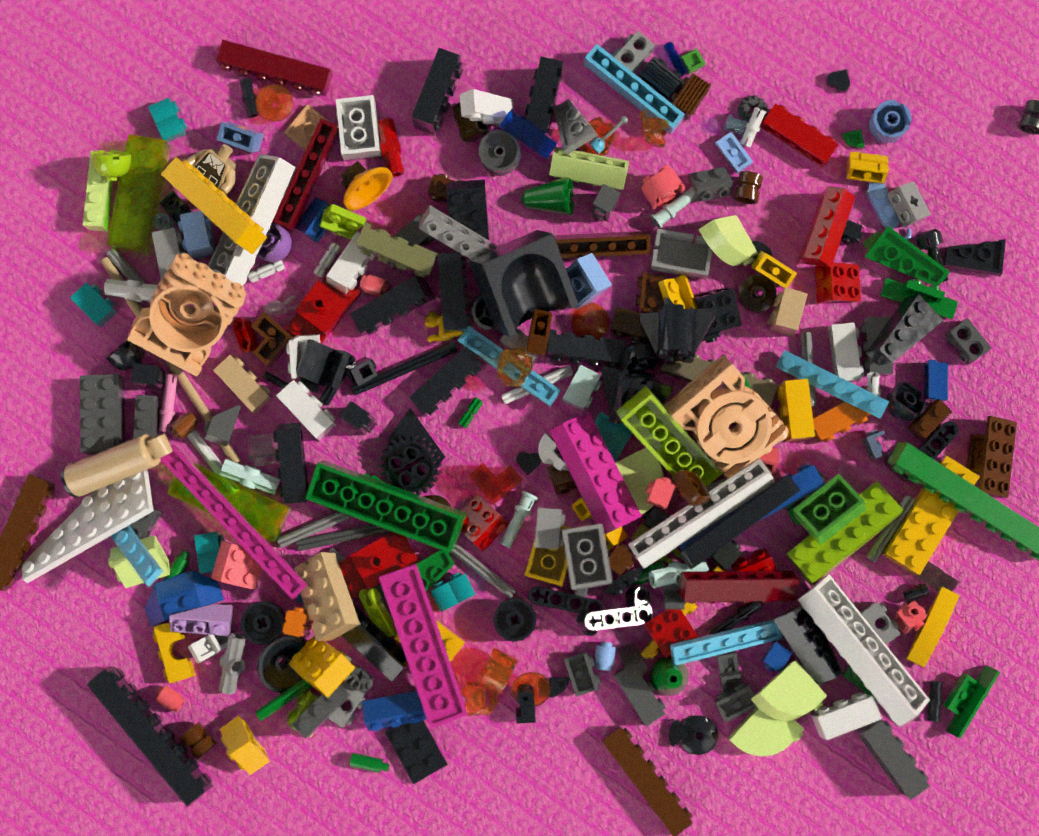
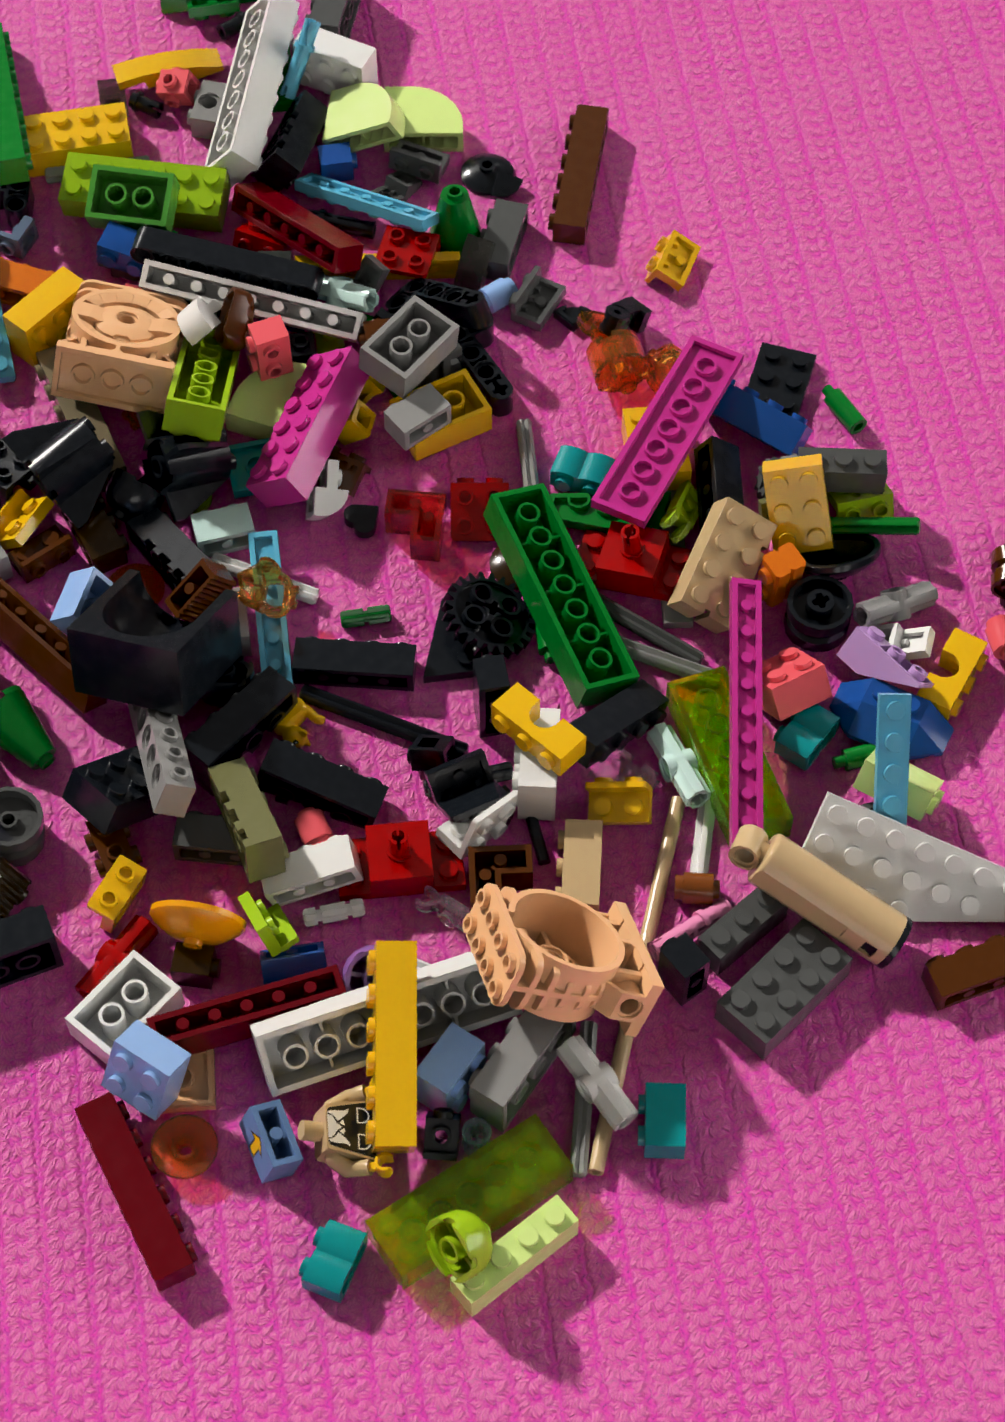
camera: 135 degrees left, 25 degrees down
(126, 356) = (682, 1026): black cylinder -> none
(222, 426) = (650, 839): dark grey slope -> none
(243, 746) = (962, 525): yellow brick -> none
(249, 97) = (206, 1187): black pin -> none
(255, 430) = (620, 801): none -> yellow bracket
(291, 410) = (554, 747): none -> yellow arch
(313, 106) = (145, 1069): none -> light blue brick
(419, 171) = (117, 891): none -> yellow bracket
(510, 630) = (548, 393): black wheel -> none
(522, 510) = (424, 480): light aqua pin -> none
(542, 771) = (673, 260): none -> yellow bracket
(704, 465) = (198, 319): none -> white brick
(859, 696) = (298, 63): none -> medium azure pin

